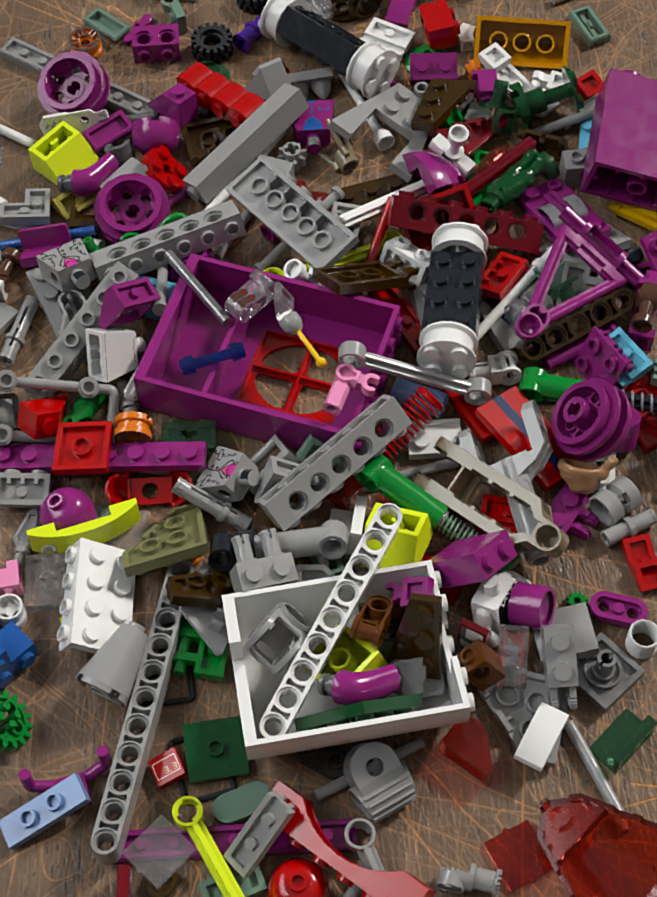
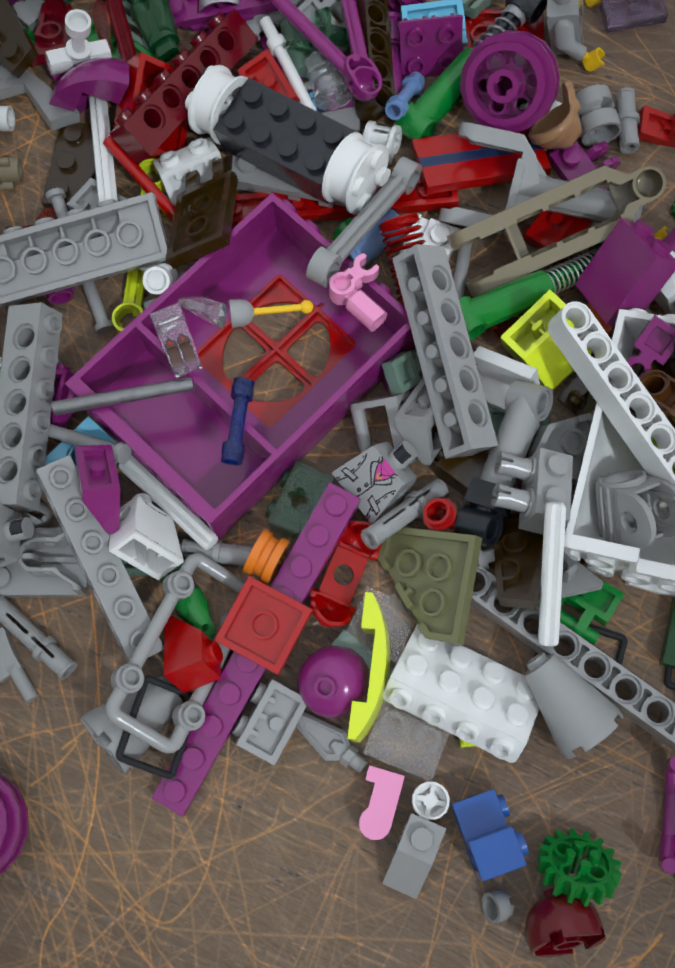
camera: 60 degrees left, 15 degrees up
(199, 599) = (551, 573): none -> white axle
(217, 523) = (440, 515): none -> red cone
(531, 359) = (398, 105): none -> medium blue bar

